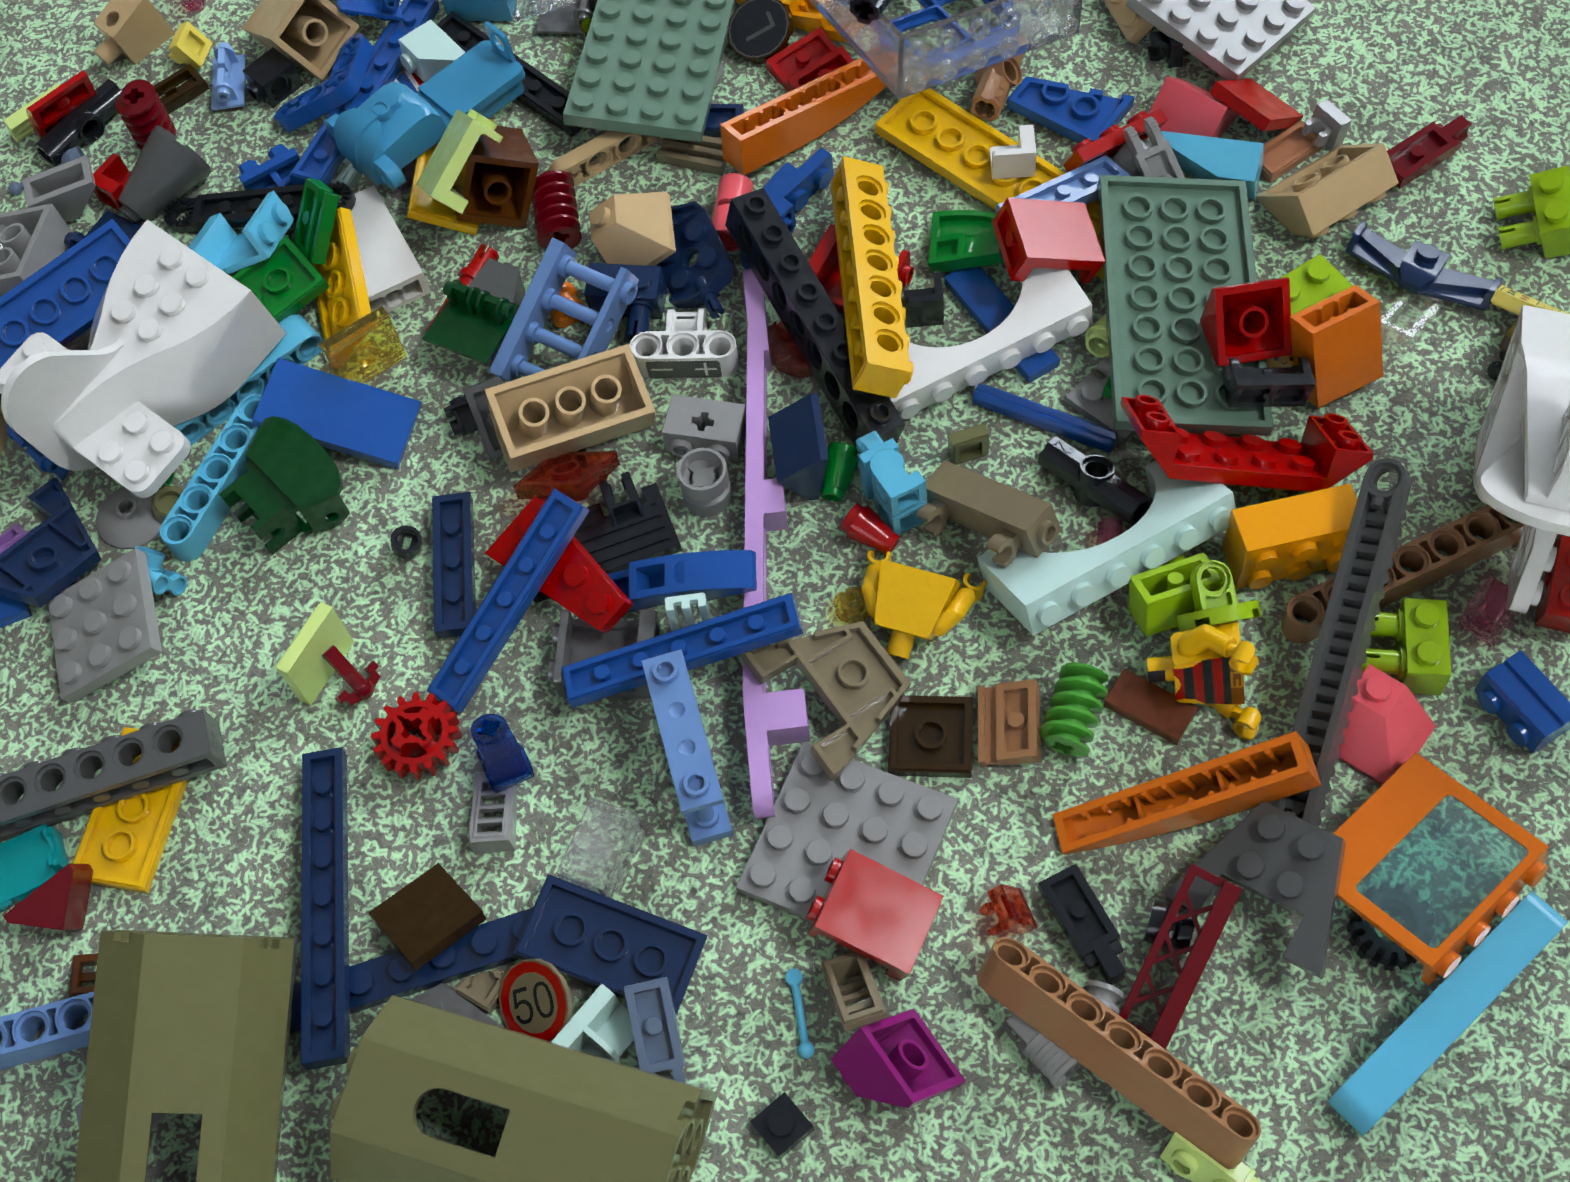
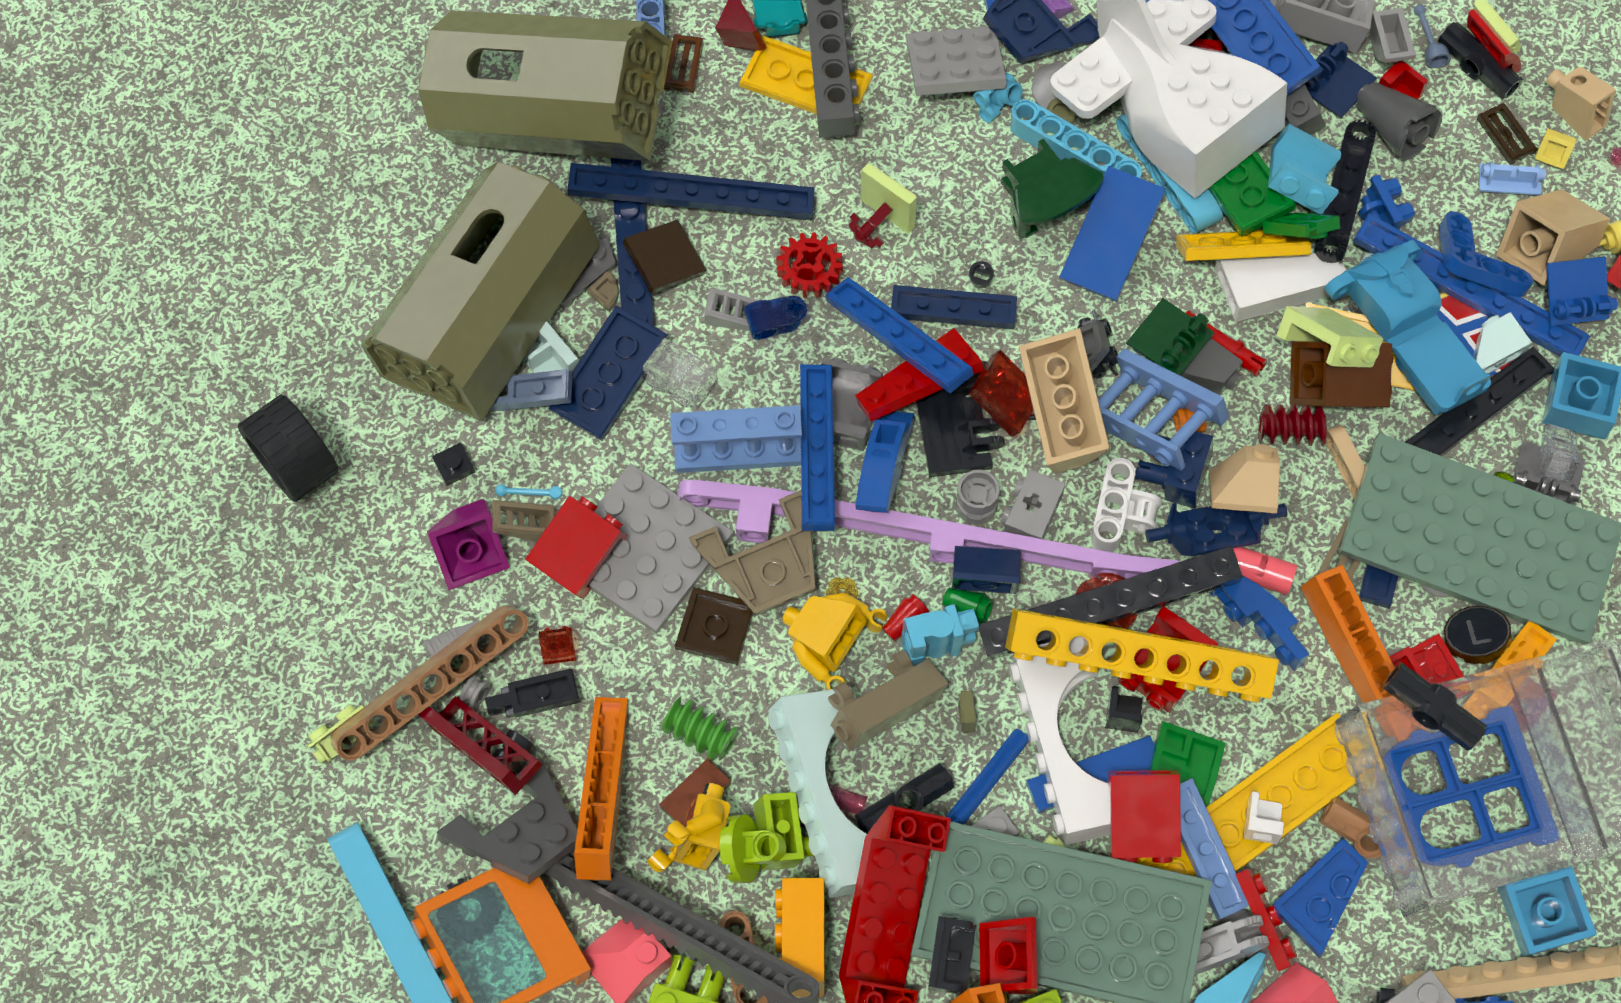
camera: 95 degrees right, 5 degrees up
(142, 111) = (1462, 105): dark red piece -> none
(272, 78) = (1496, 210): black brick -> none
(364, 347) = (1166, 255): clear yellow tile -> none
(535, 999) = (581, 317): piece -> none
(685, 601) = (849, 461): light aqua tile -> none
(1009, 723) = (707, 682): medium nougat plate -> none

